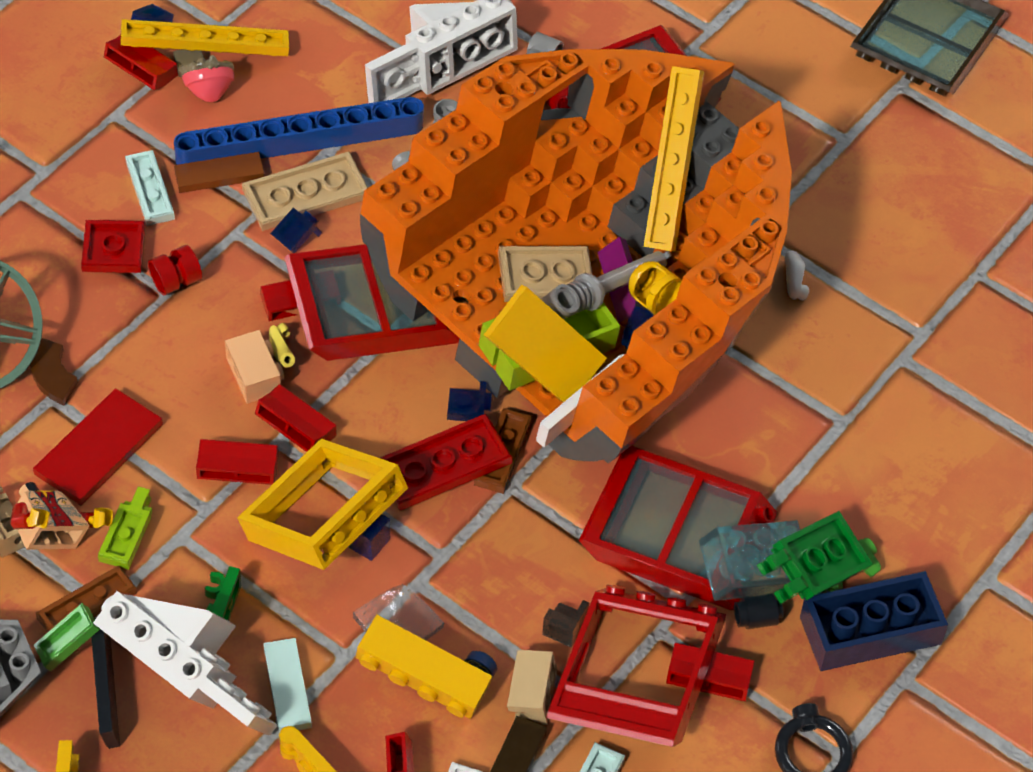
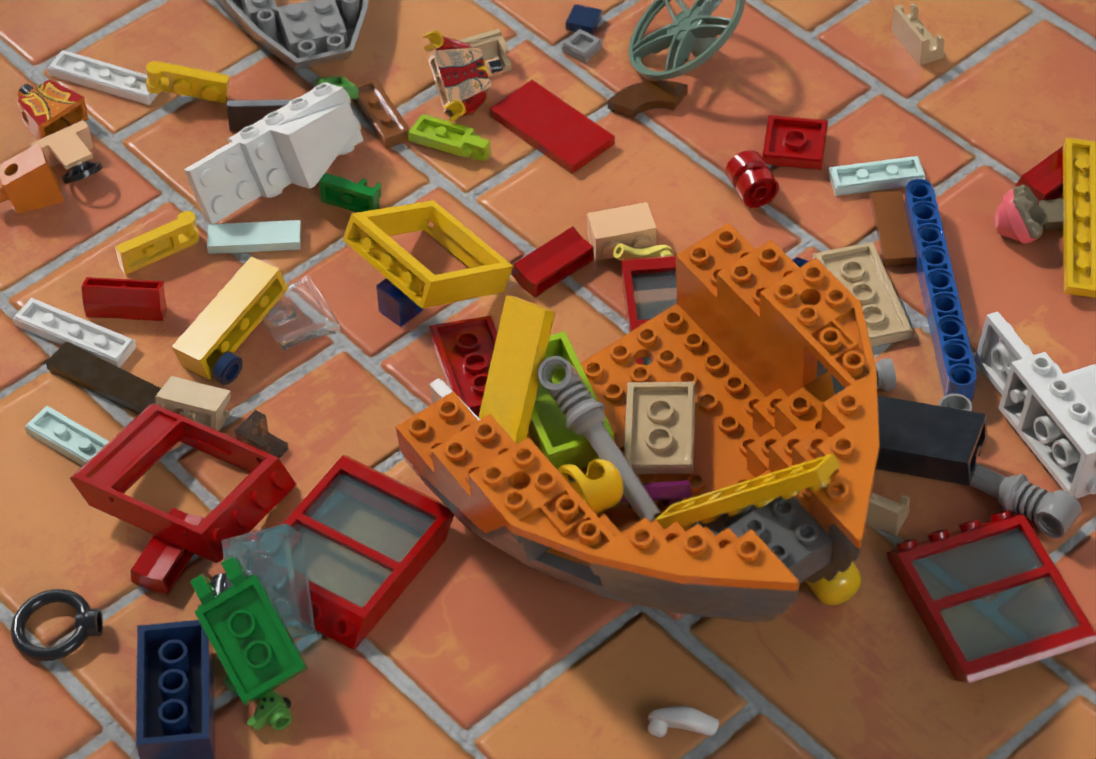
camera: 105 degrees right, 5 degrees down
(237, 461) = (511, 216): red piece -> none

